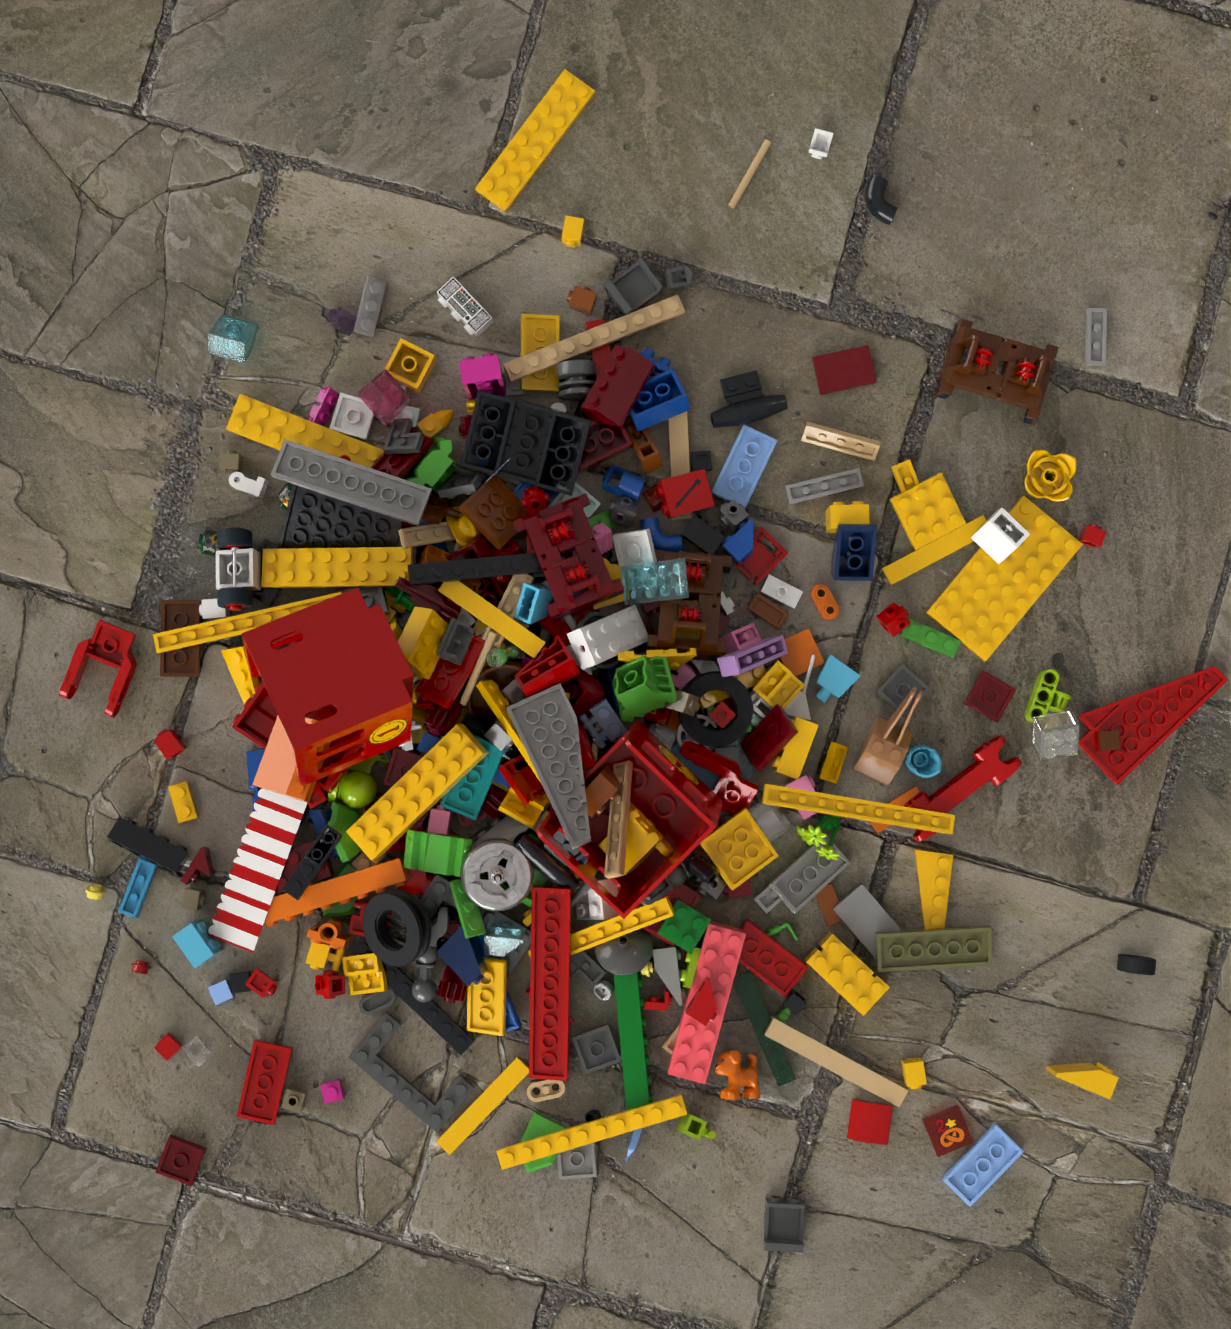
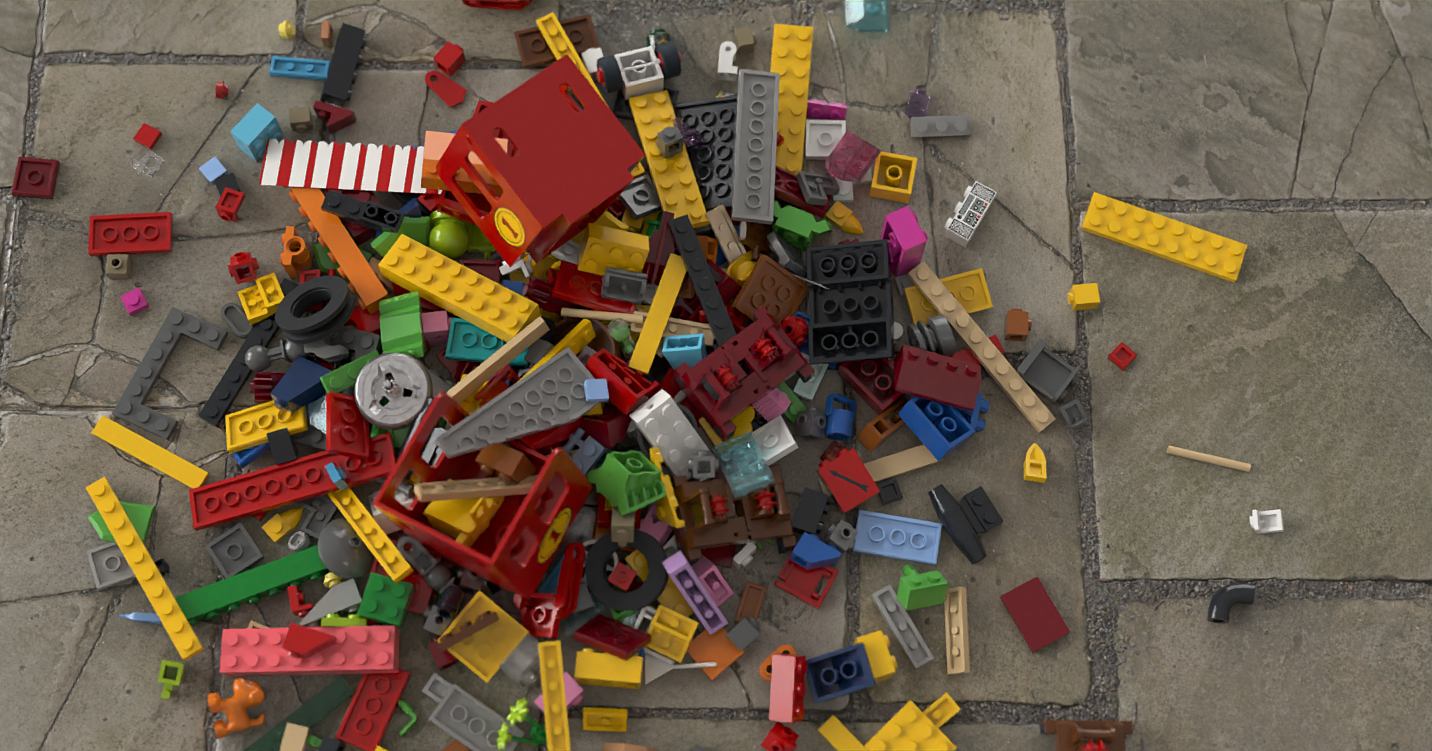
camera: 70 degrees right, 15 degrees down
(109, 854) = (327, 33): none -> nougat tile
(183, 802) = (395, 86): yellow plate -> none
(198, 755) = (446, 88): none -> red piece
(314, 545) = (690, 136): none -> bracket
(320, 955) = (269, 253): yellow brick -> none
(322, 560) = (667, 137): none -> dark grey brick
(500, 777) = (498, 360): none -> tan tile
(516, 985) = (282, 446): none -> black slope
(519, 925) = (346, 427): none -> red plate
(546, 1090) = (180, 512): tan plate -> none
(554, 693) = (596, 390): none -> light blue tile
(561, 942) = (337, 475): none -> dark azure plate
(581, 1001) = (282, 524): none -> yellow plate
(636, 216) = (1122, 356): none -> red tile
(644, 616) = (703, 473): none -> flat silver brick
(660, 540) = (791, 469): blue cylinder -> none
(714, 326) = (1035, 465): none -> yellow plate
(734, 861) = (467, 630): none -> reddish brown plate
(781, 591) = (775, 613): white plate -> none
(793, 623) = (744, 632): none -> dark grey brick
(799, 460) = (921, 589): none -> bright green brick
(834, 679) = (696, 695): medium azure torso -> none
(852, 599) = (787, 688): none -> brick

